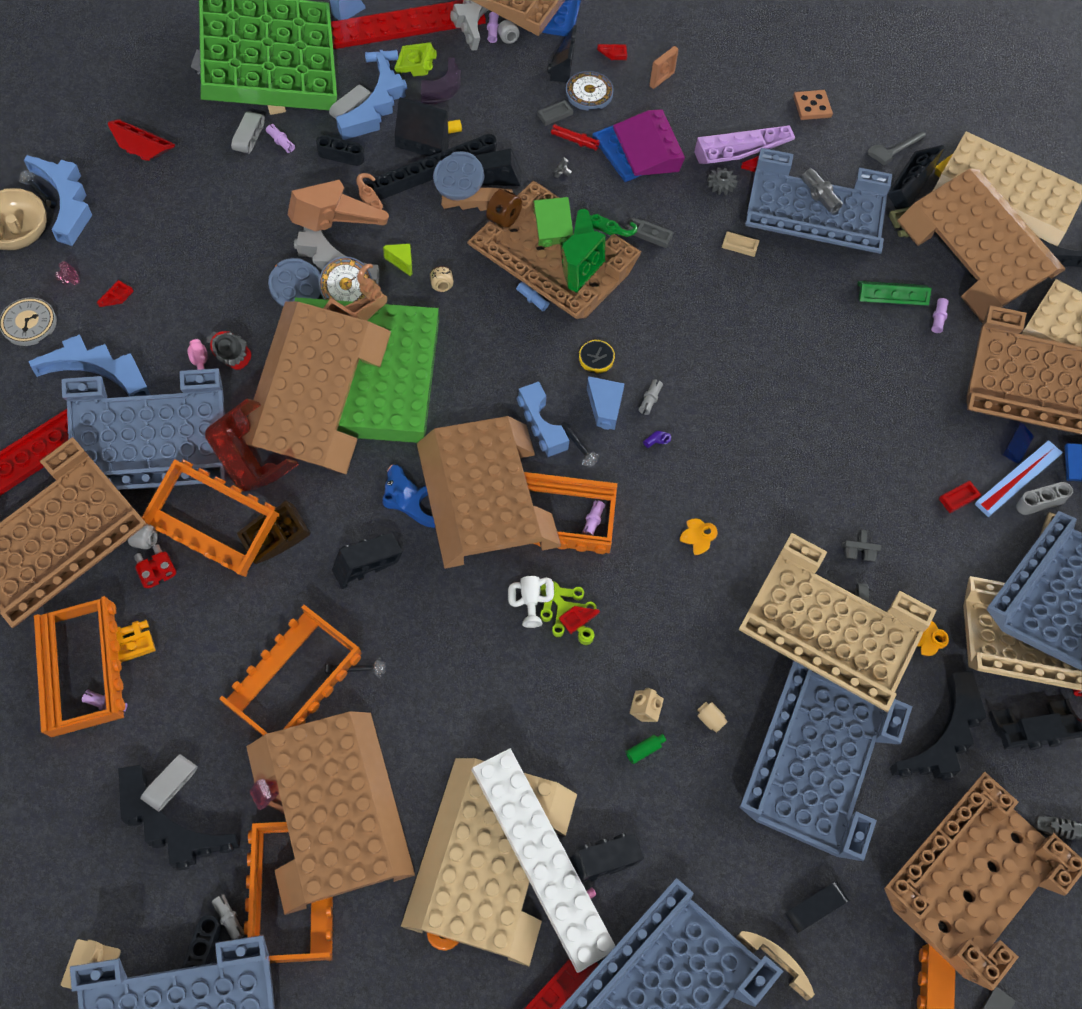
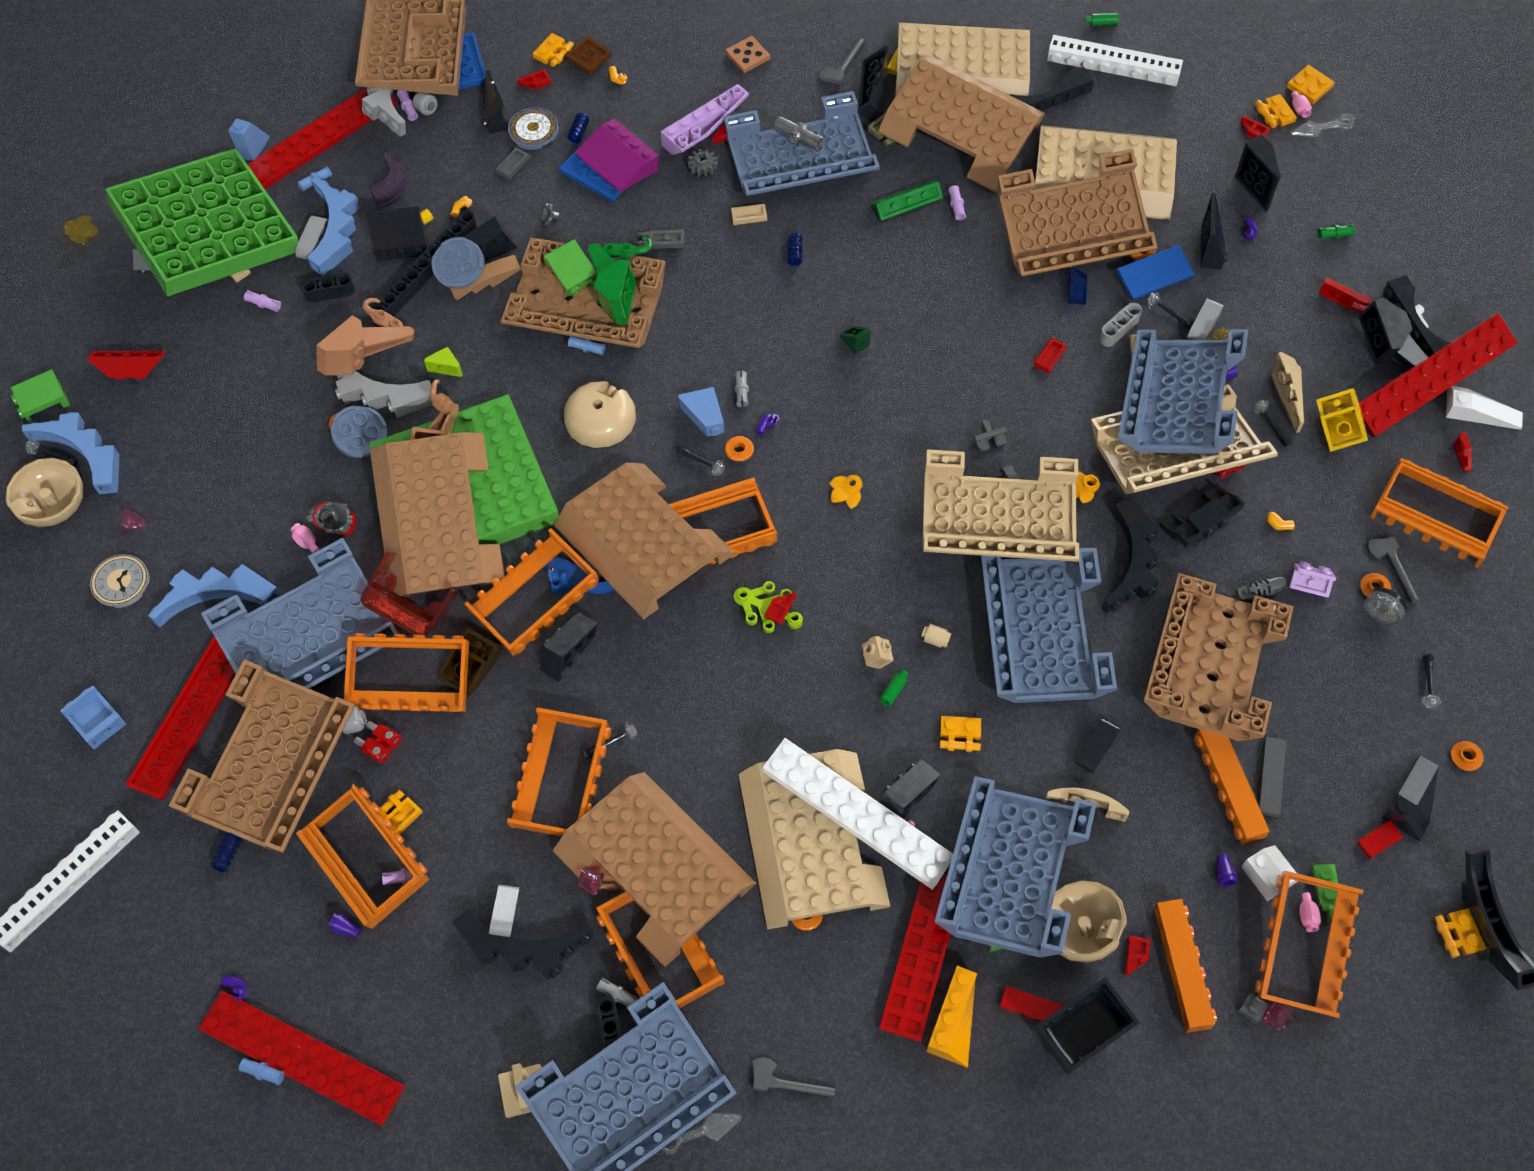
camera: 20 degrees left, 0 degrees up
(27, 722) = (343, 925): none -> dark purple cone
(57, 136) = (38, 394): none -> bright green panel
(115, 295) = (190, 518): red tile -> none
(171, 18) = (80, 229): none -> clear yellow plate
(248, 132) = (227, 308): light grey beam -> none
(340, 280) = (407, 407): tile -> none
(355, 476) = (519, 576): none -> orange window
(416, 59) = (350, 168): lime plate -> none
(441, 278) = (493, 366): tan head -> none
(489, 128) = (464, 201): none -> light orange arm
(508, 202) = (519, 269): reddish brown piece -> none
(509, 362) = (599, 415): none -> tan piece
(531, 596) = (730, 609): white piece -> none
(551, 437) = (673, 464): medium blue arch -> none
(580, 139) = (541, 179): red pin -> none
(593, 518) = (748, 517): lavender pin -> none
(596, 356) = (674, 374): black tile -> none
(619, 443) = (739, 441): none -> orange piece
(628, 106) = (578, 128): none -> clear blue piece
(642, 32) = (549, 50): none -> light orange plate
(663, 67) = (593, 76): nougat tile -> none
(665, 43) = (588, 55): none -> reddish brown plate
(684, 77) = (614, 77): none -> light orange arm
(691, 821) = (960, 728): none -> light orange plate
(765, 292) = (795, 247): none -> clear blue piece
(781, 398) = (856, 338): none -> dark green slope
(1018, 478) = (1091, 317): light blue tile -> none

